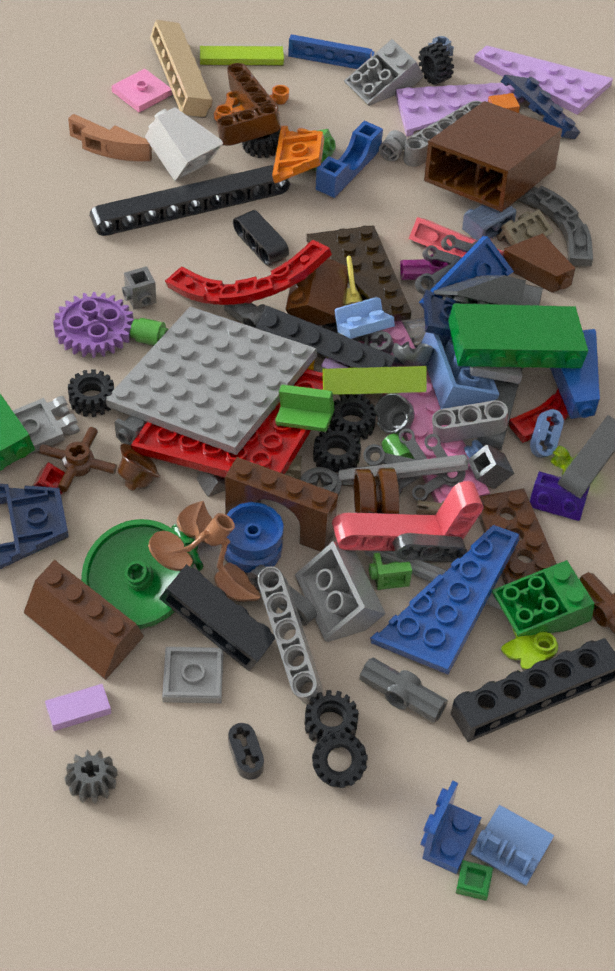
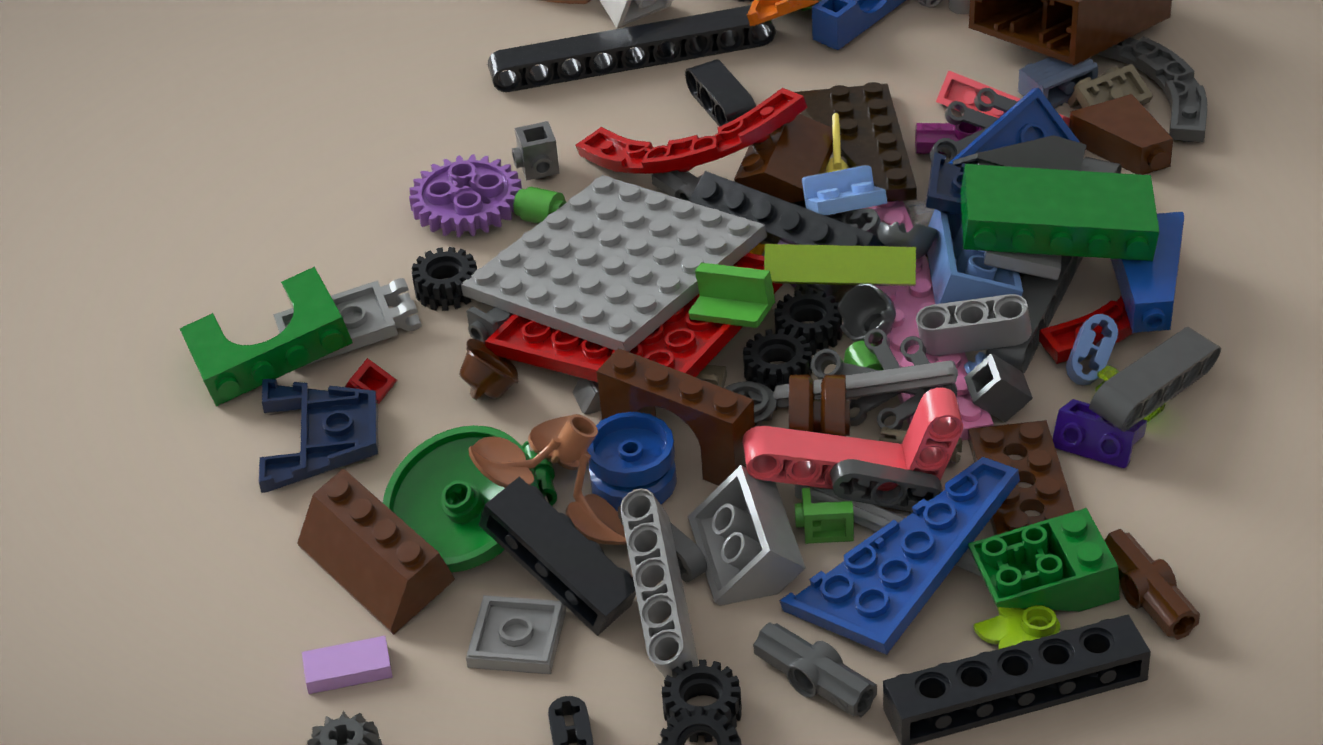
camera: 15 degrees right, 10 degrees down
(78, 459) = (409, 357): reddish brown bar -> none

